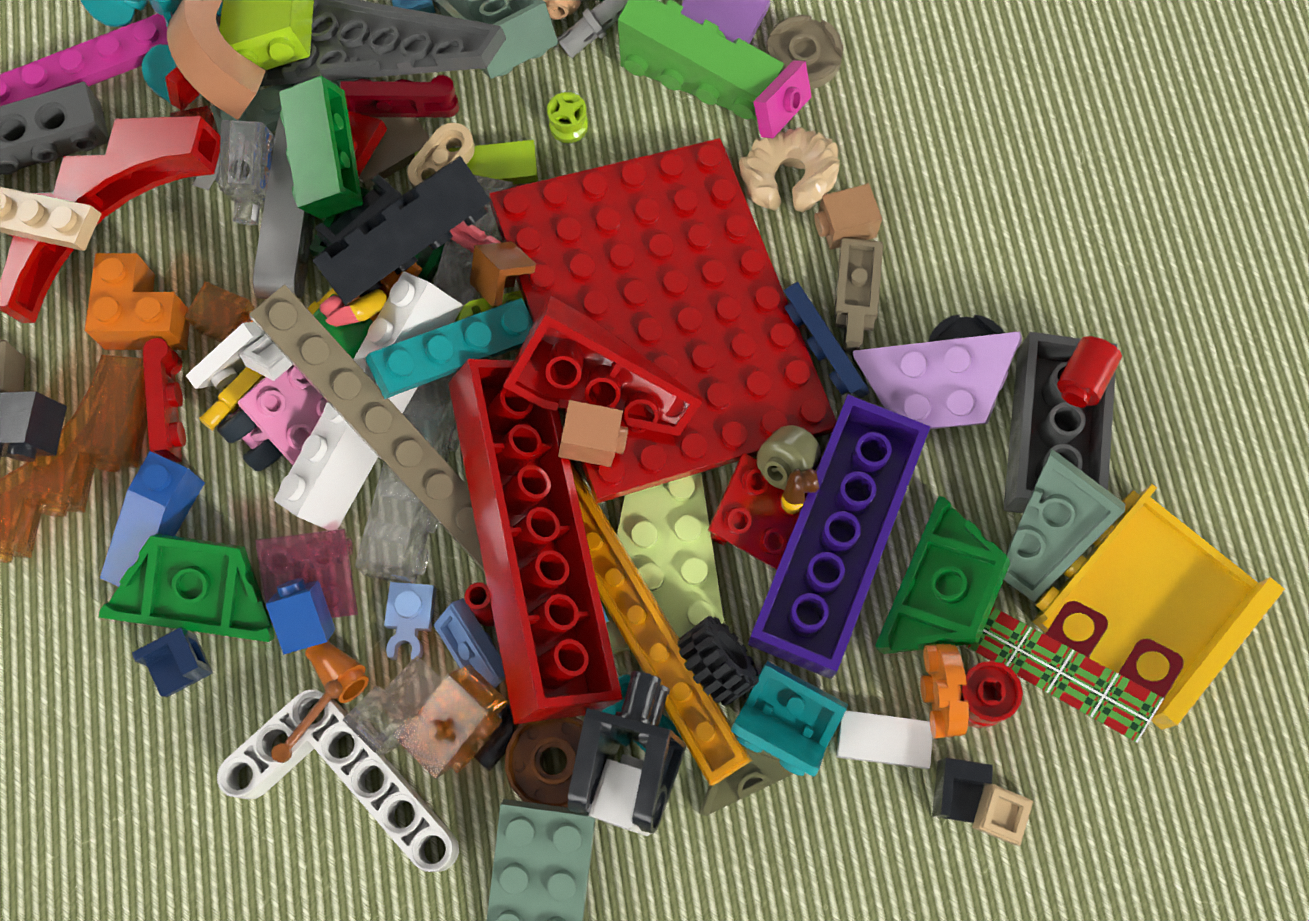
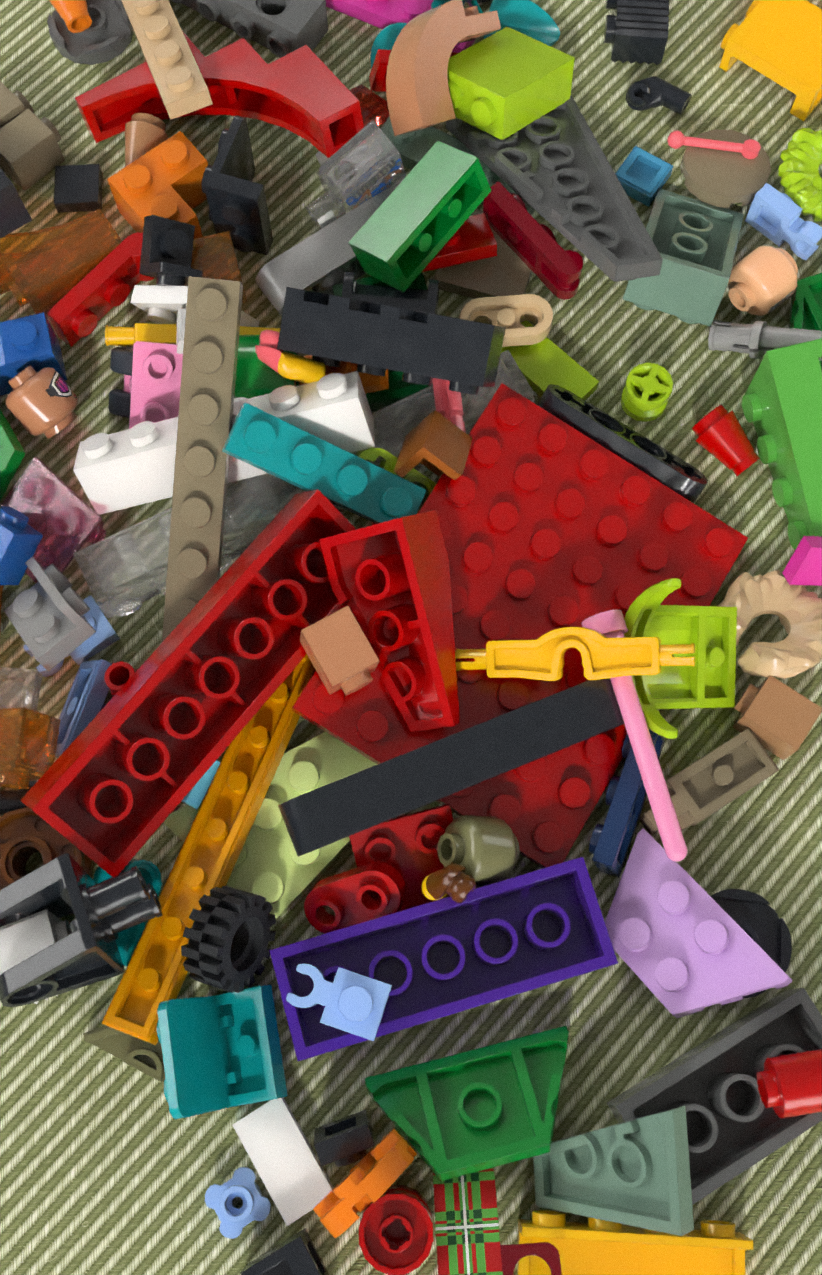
camera: 50 degrees right, 0 degrees up
(60, 362) = (78, 188): none -> black tile
(70, 288) = (143, 135): none -> medium nougat cone
(186, 261) = (232, 197): none -> black bracket
(186, 331) = (167, 251): none -> black bracket
(213, 507) = (41, 401): none -> nougat head
(385, 617) = (50, 616): none -> light grey bracket
(590, 156) = (624, 442): none -> black beam
(643, 98) = (725, 439): none -> red cone
(721, 264) = (613, 625): none -> bright pink piece
(723, 427) = (450, 765): none -> black beam
(735, 276) = (600, 655): none -> yellow piece
(752, 563) = (350, 898): none -> red plate
(764, 239) = (684, 687): none -> lime piece
(825, 607) = (350, 1002): none -> light blue plate
(900, 780) = (221, 1200): none -> light blue plate
(904, 687) = (344, 1140): none -> black plate

